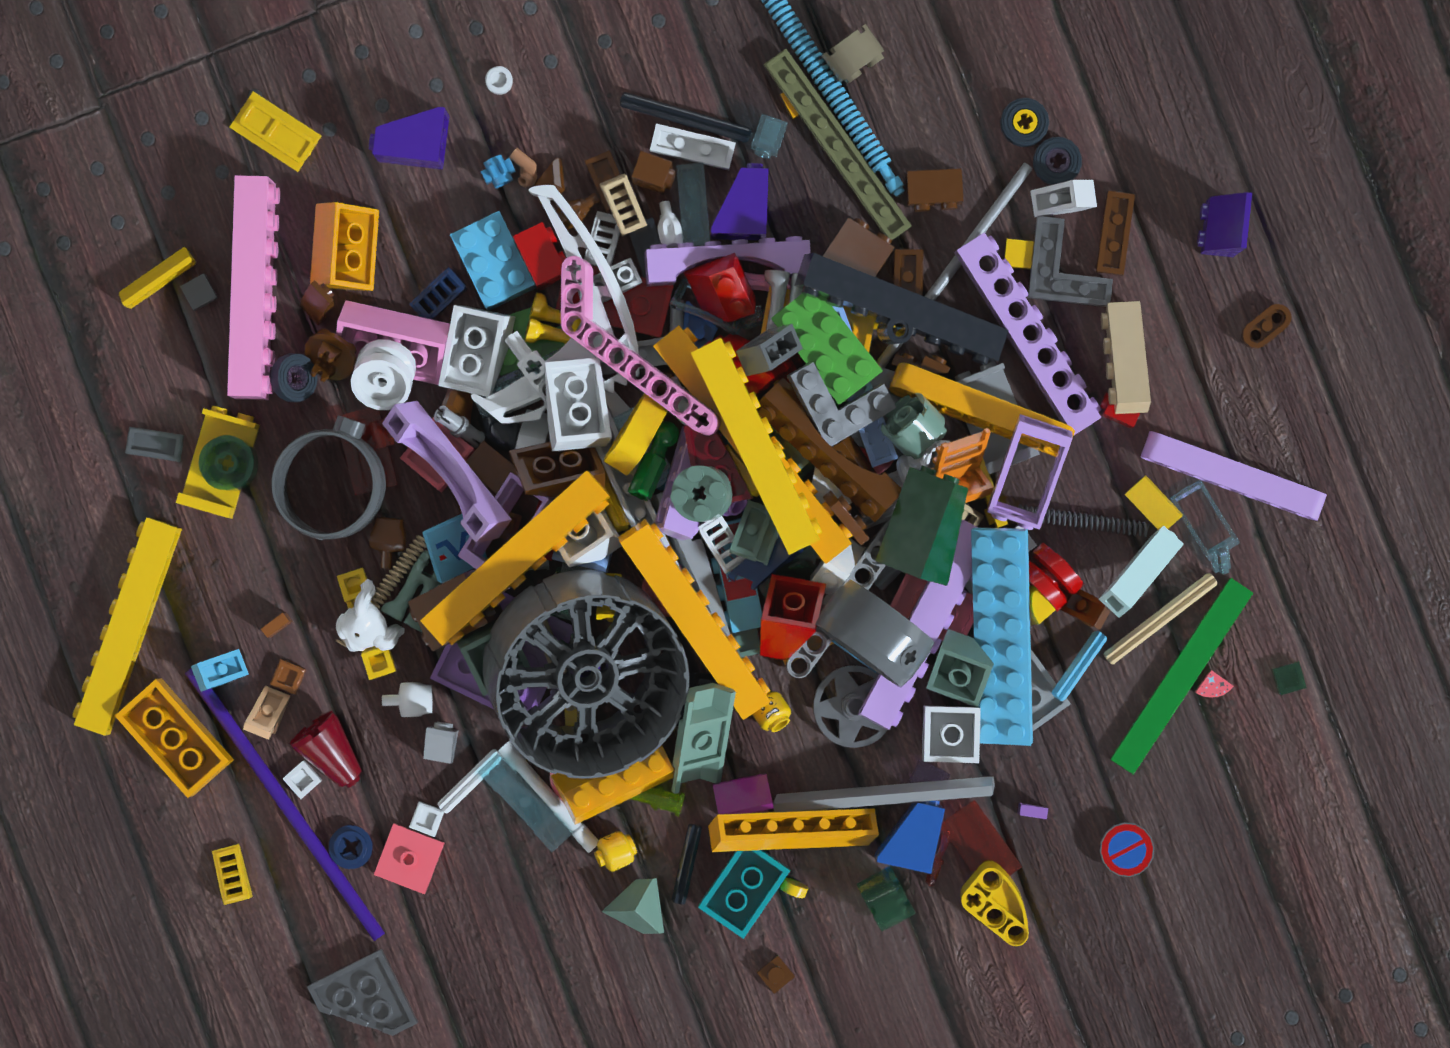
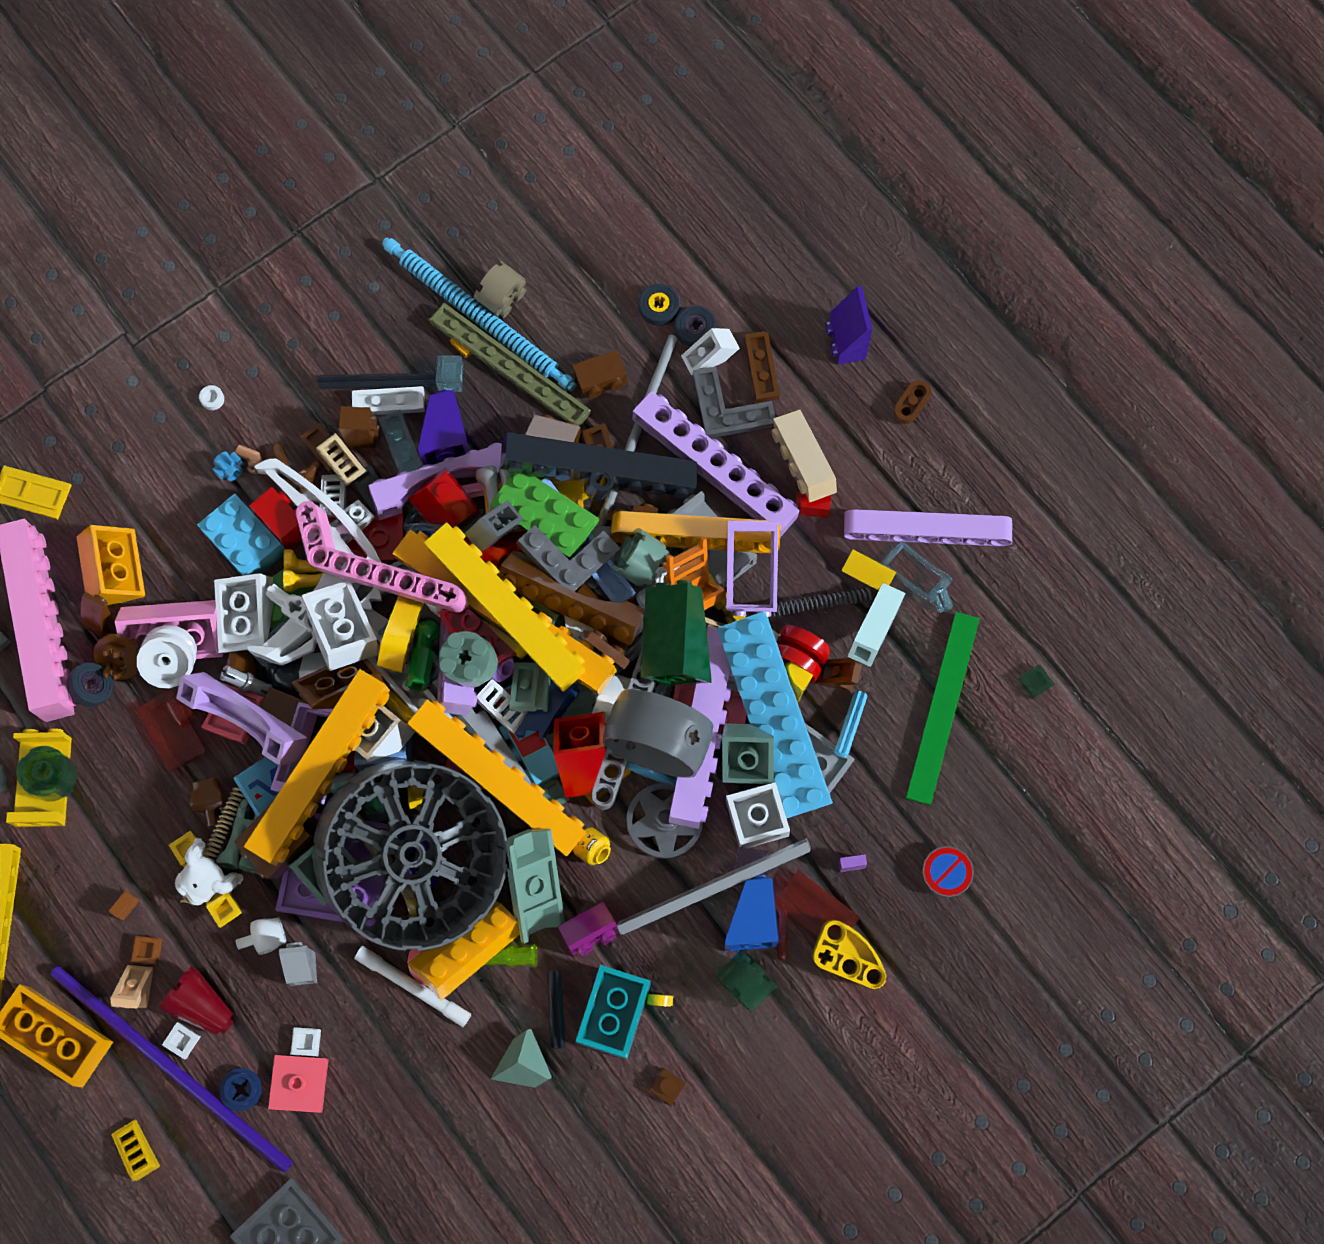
camera: 15 degrees left, 15 degrees down
(219, 670) = (80, 962): medium azure slope -> none
(351, 431) = (107, 735): dark grey cylinder -> none
(413, 140) = (147, 459): dark purple slope -> none
(439, 281) = (199, 571): dark blue slope -> none
(463, 787) = (336, 994): white axle -> none
(525, 802) = (390, 996): clear light blue slope -> none
(615, 851) = (486, 1016): yellow head -> none
(669, 226) = (384, 467): white piece -> none
(793, 830) = (640, 941): light orange brick -> none
(1019, 253) = (688, 405): yellow tile -> none
(1160, 618) = (907, 665): tan axle -> none
(1213, 686) = (973, 707): coral tile -> none

